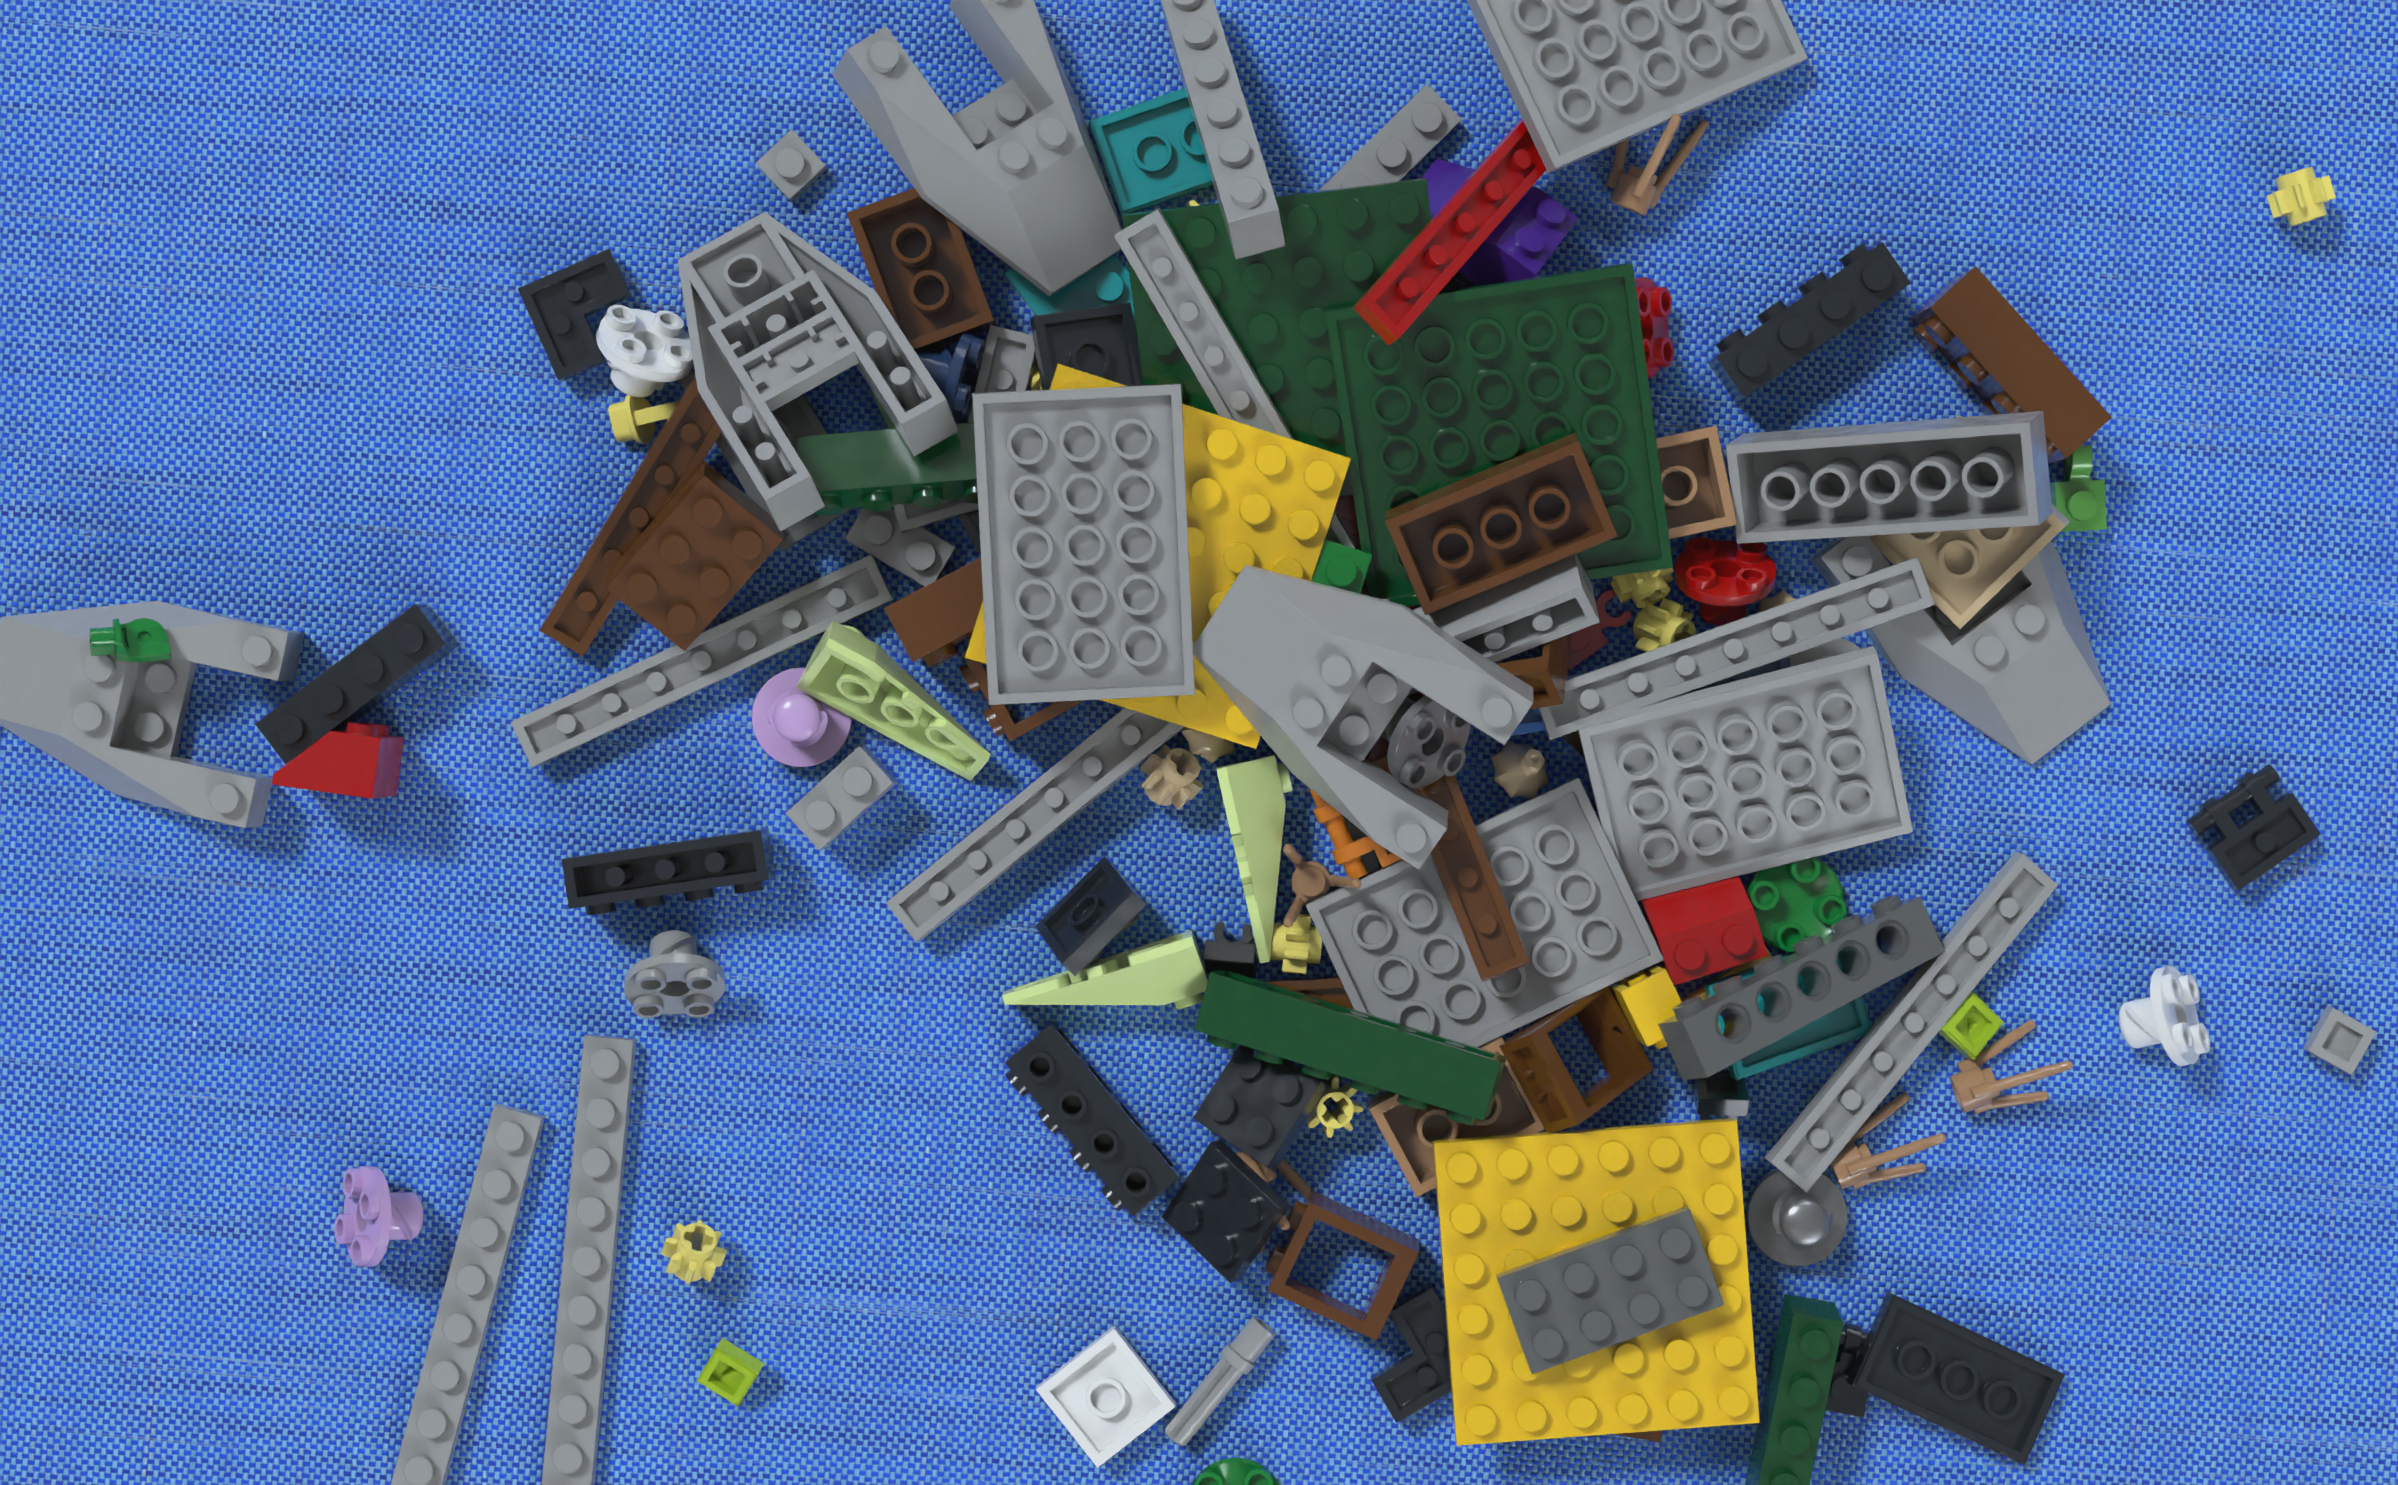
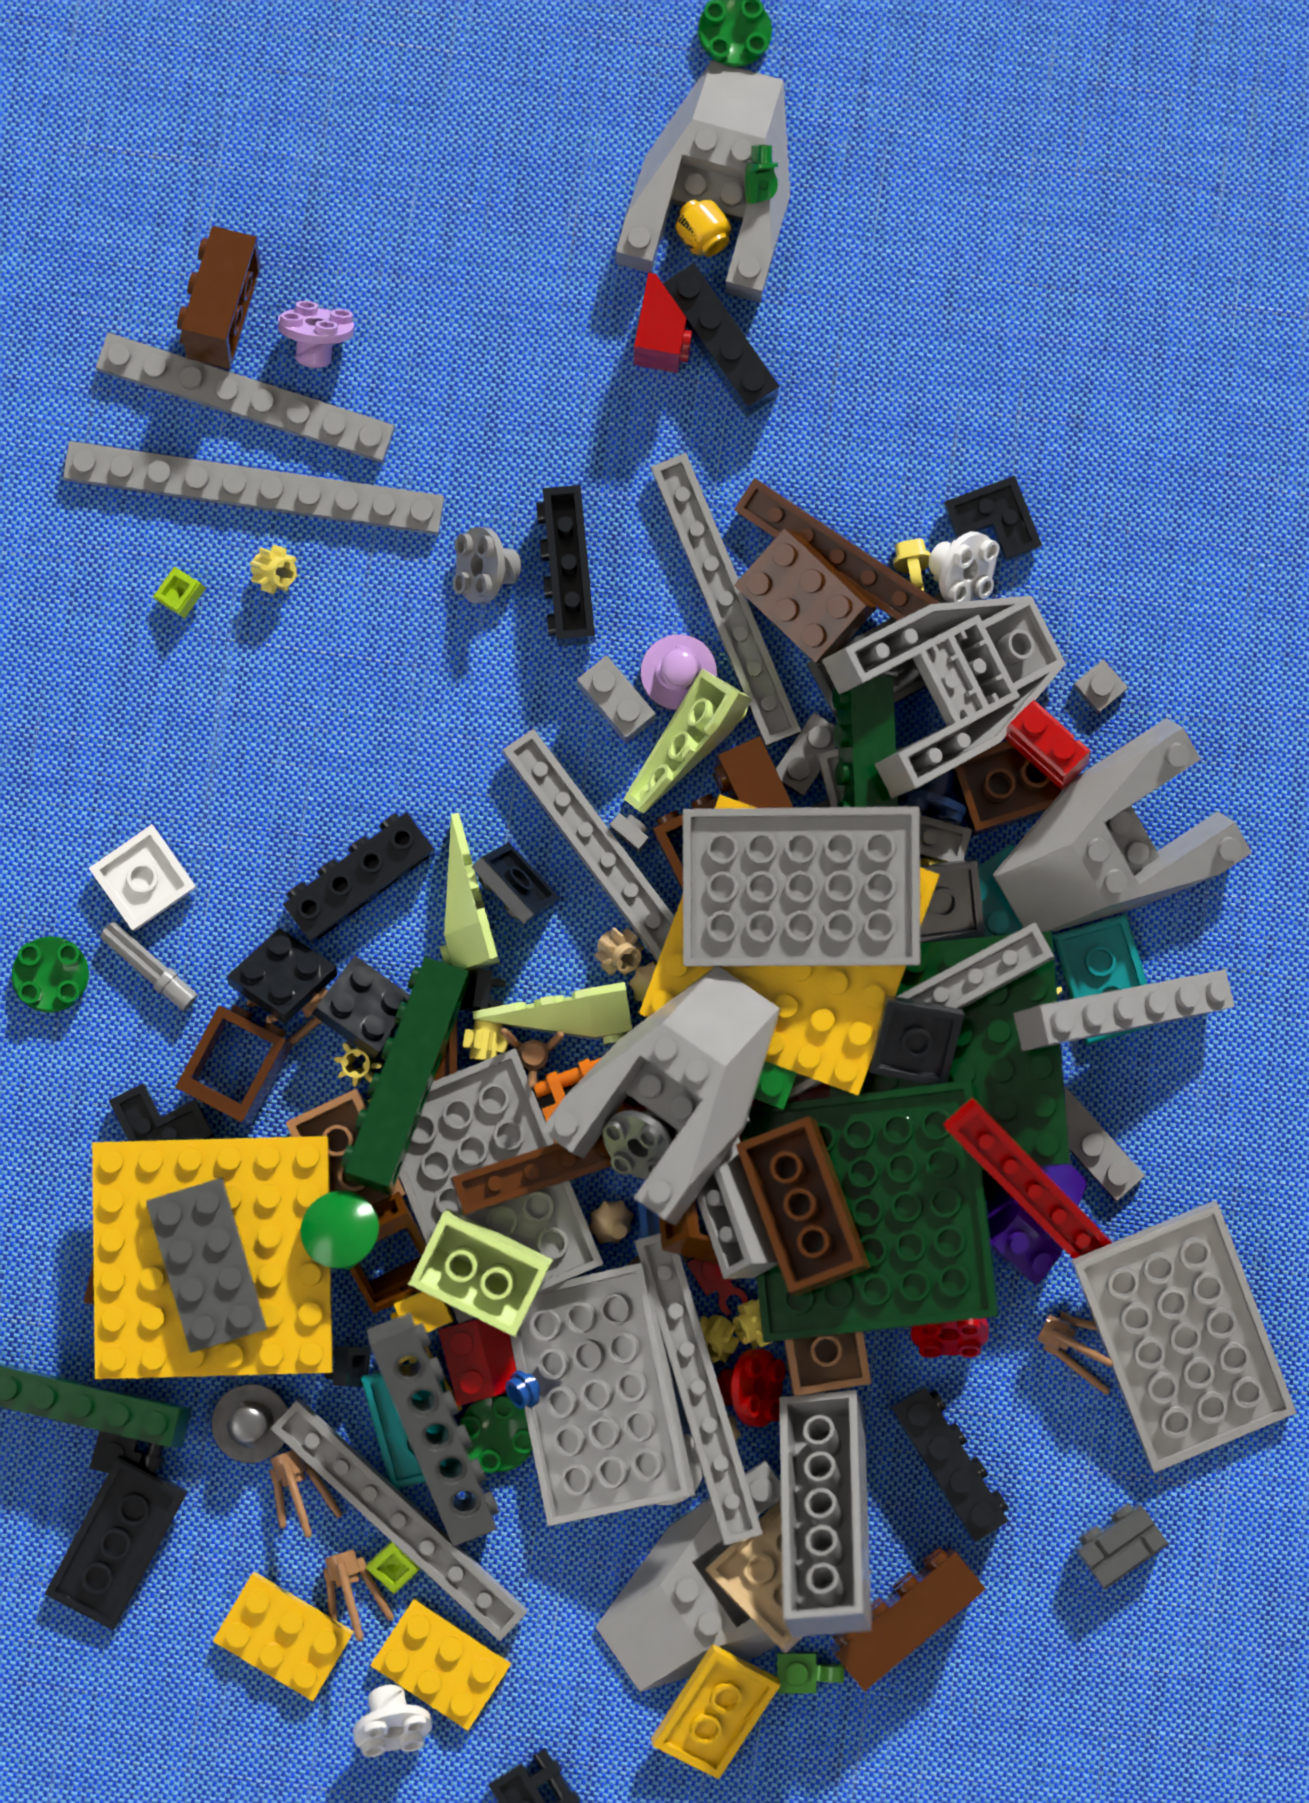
camera: 85 degrees right, 5 degrees down
(207, 713) = (703, 227): none -> yellow head
(334, 1345) = (219, 297): none -> reddish brown brick
(876, 228) = (1048, 745): none -> red brick
(1013, 769) = (630, 830): none -> light grey plate
(1276, 385) = (916, 1040): none -> black plate
(1557, 1122) = (339, 1229): none -> green dish
(1600, 936) = (480, 1272): none -> yellowish green slope
(1743, 872) = (523, 1389): none -> blue plate
(1900, 98) = (1120, 1544): none -> dark grey brick
(2062, 1159) = (283, 1636): none -> yellow plate
(2087, 957) = (440, 1664): none -> yellow plate
(2136, 606) = (715, 1711): none -> yellow plate

